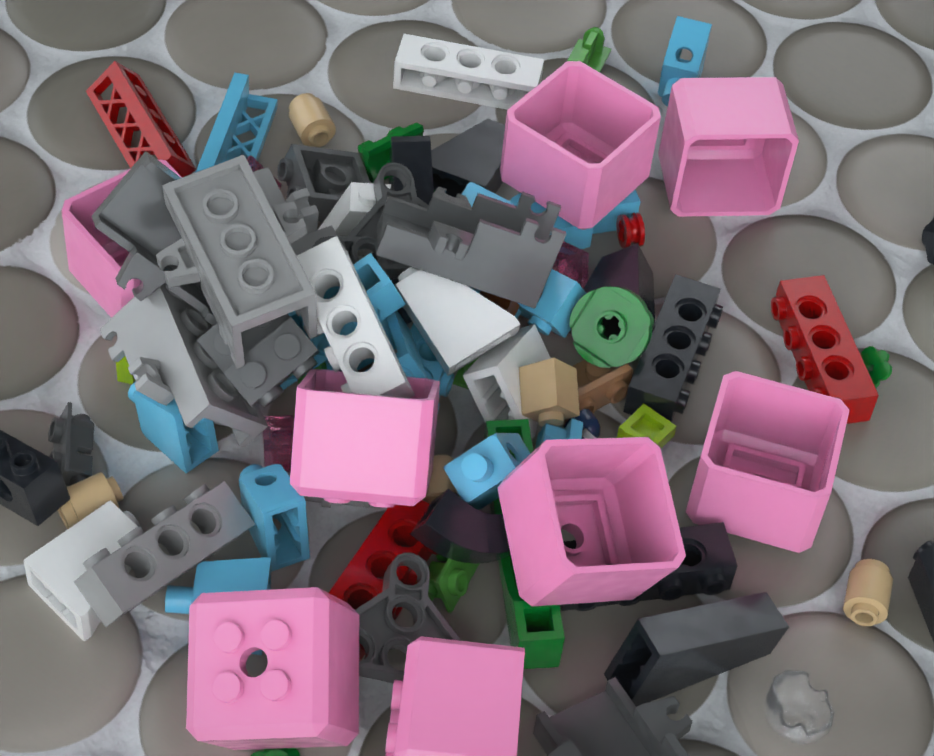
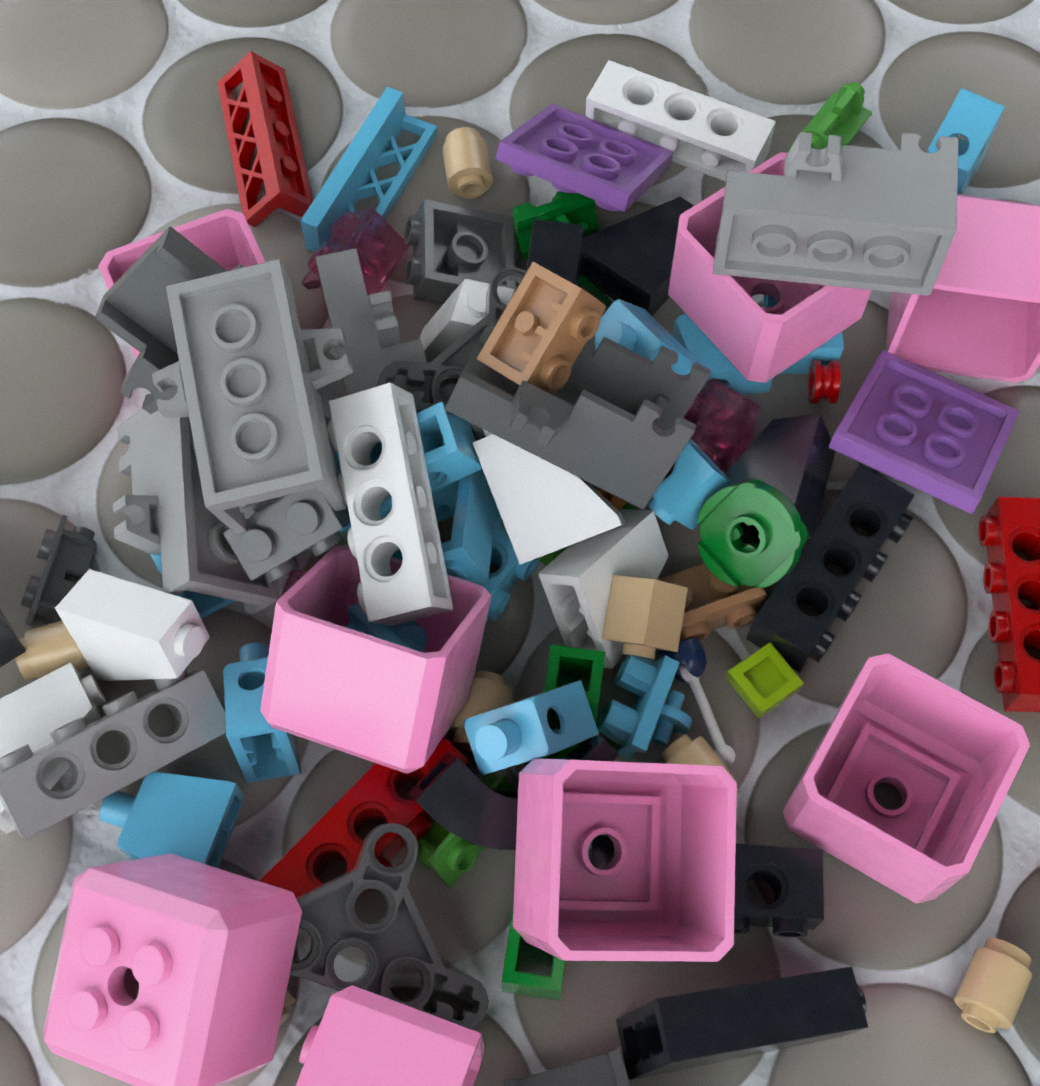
camera: 20 degrees right, 15 degrees up
(161, 461) = (131, 628): none -> white slope
(406, 101) = (584, 157): none -> medium lavender plate
(434, 189) = (542, 330): none -> medium nougat bracket
(628, 88) = (844, 216): none -> light grey piece
(715, 248) = (925, 431): none -> medium lavender plate

